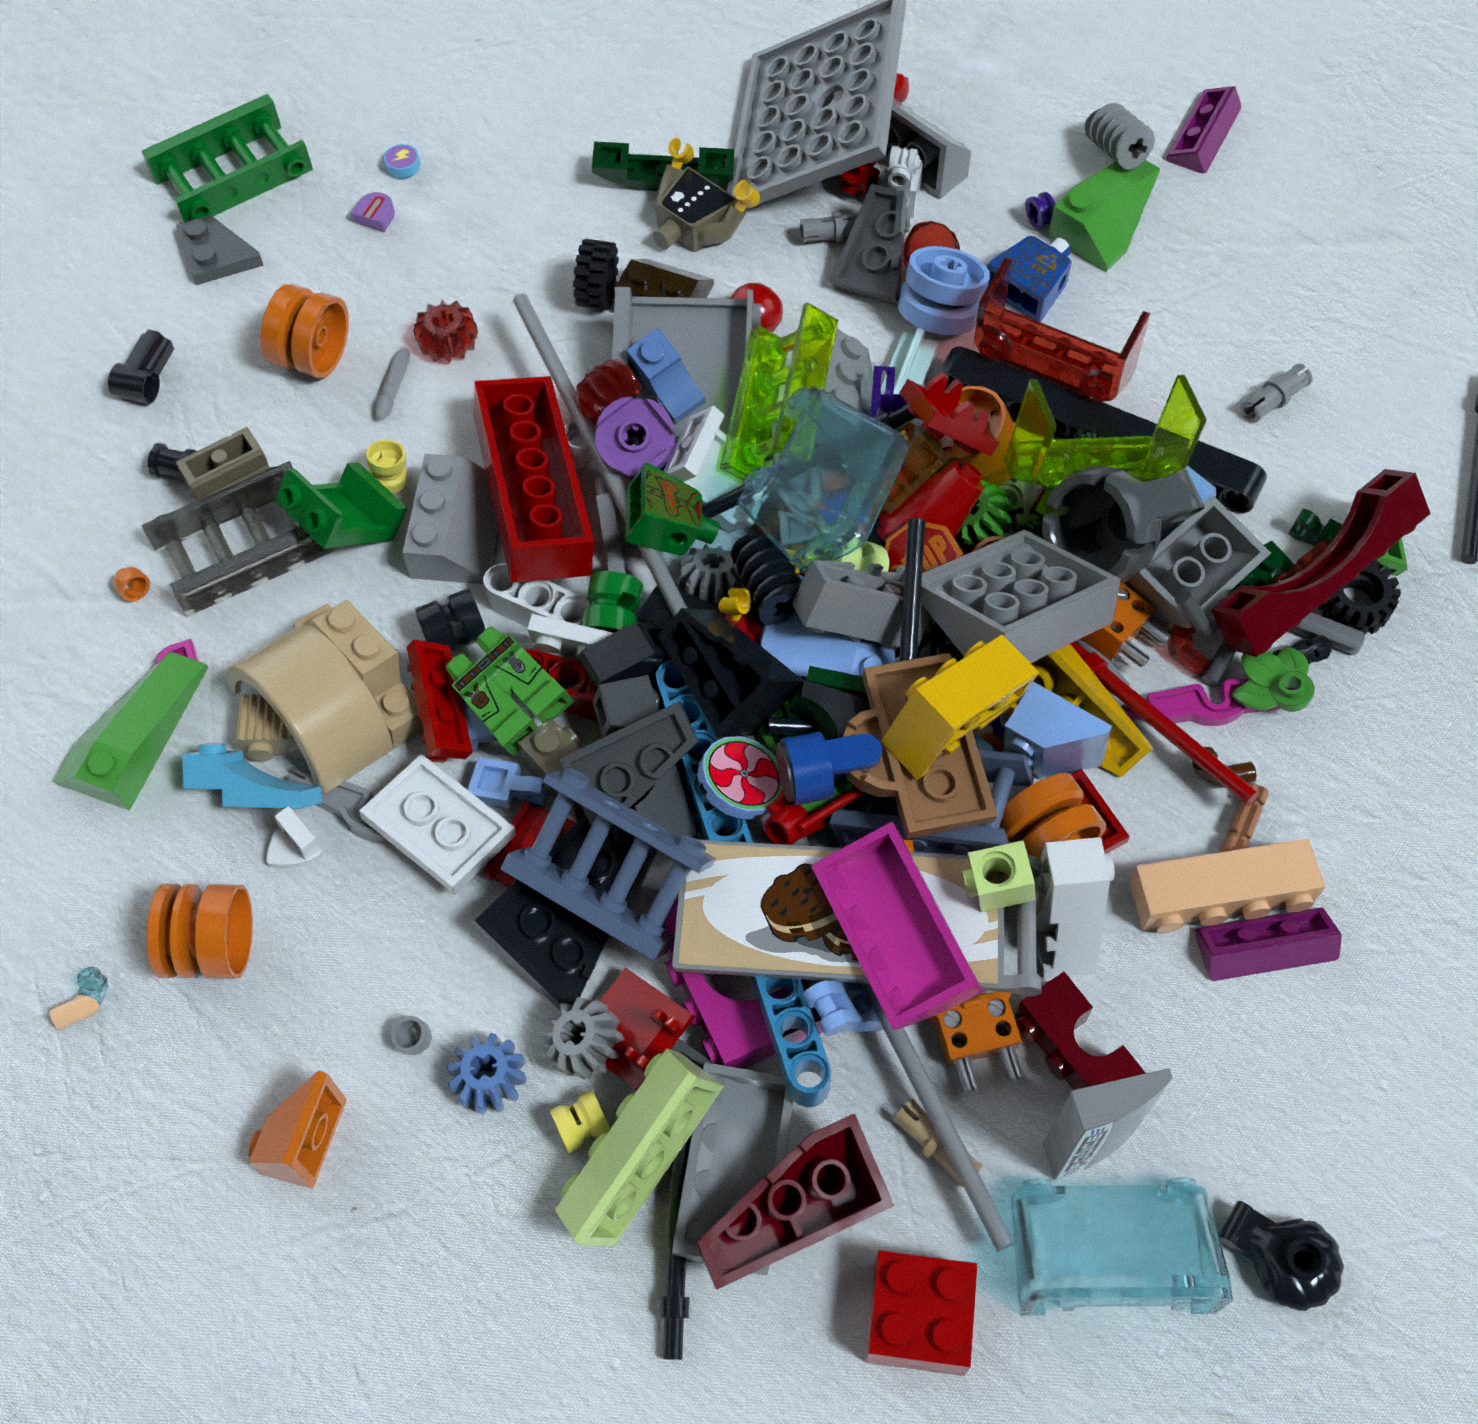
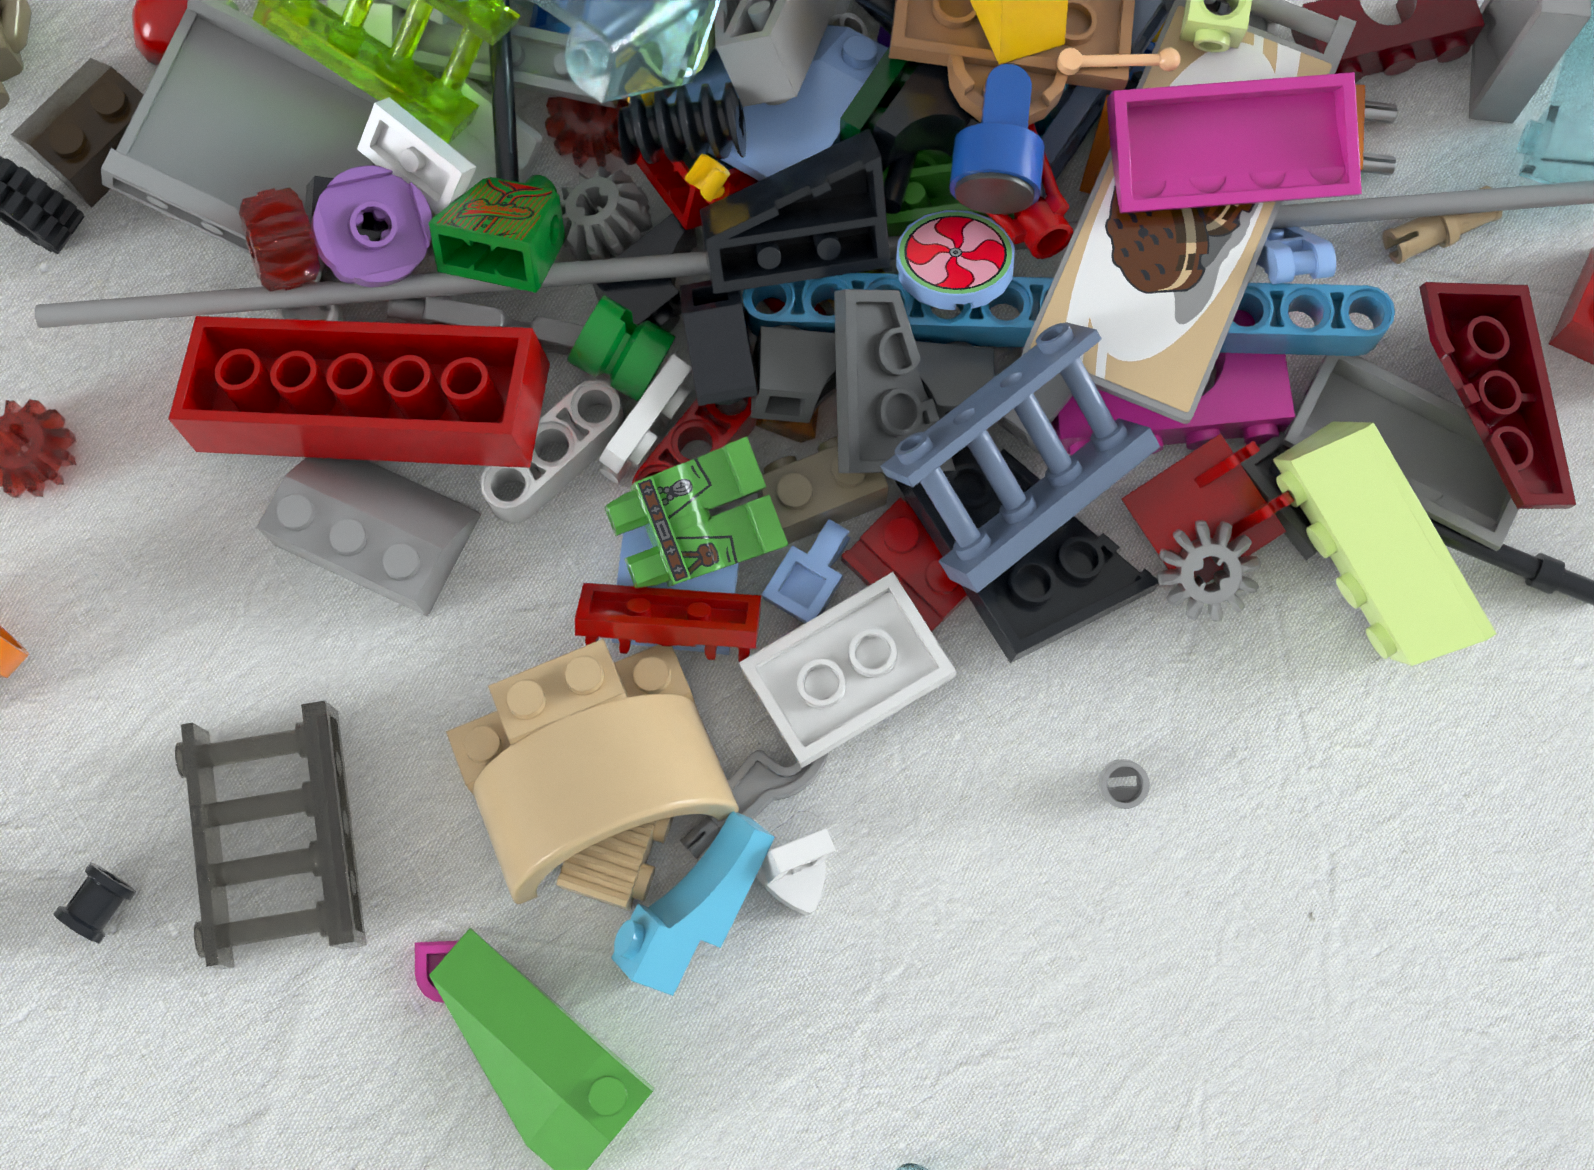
camera: 70 degrees left, 15 degrees up
(135, 579) = (283, 1011): orange hinge -> none
(200, 931) = (905, 1013): orange wheel -> none
(223, 464) = (149, 824): dark tan brick -> none
(299, 1133) = (1220, 953): orange slope -> none
(342, 512) = (297, 668): green panel -> none
(387, 464) = (238, 593): light yellow wheel -> none
(391, 386) = (80, 553): light grey piece -> none
(460, 608) = (541, 572): black wheel -> none
(486, 1089) = (1225, 714): medium blue gear -> none
(588, 1113) = (1299, 611): light yellow wheel -> none
(665, 375) = (259, 159): medium blue arch -> none
(903, 787) = (1071, 60): none -> light nougat hinge

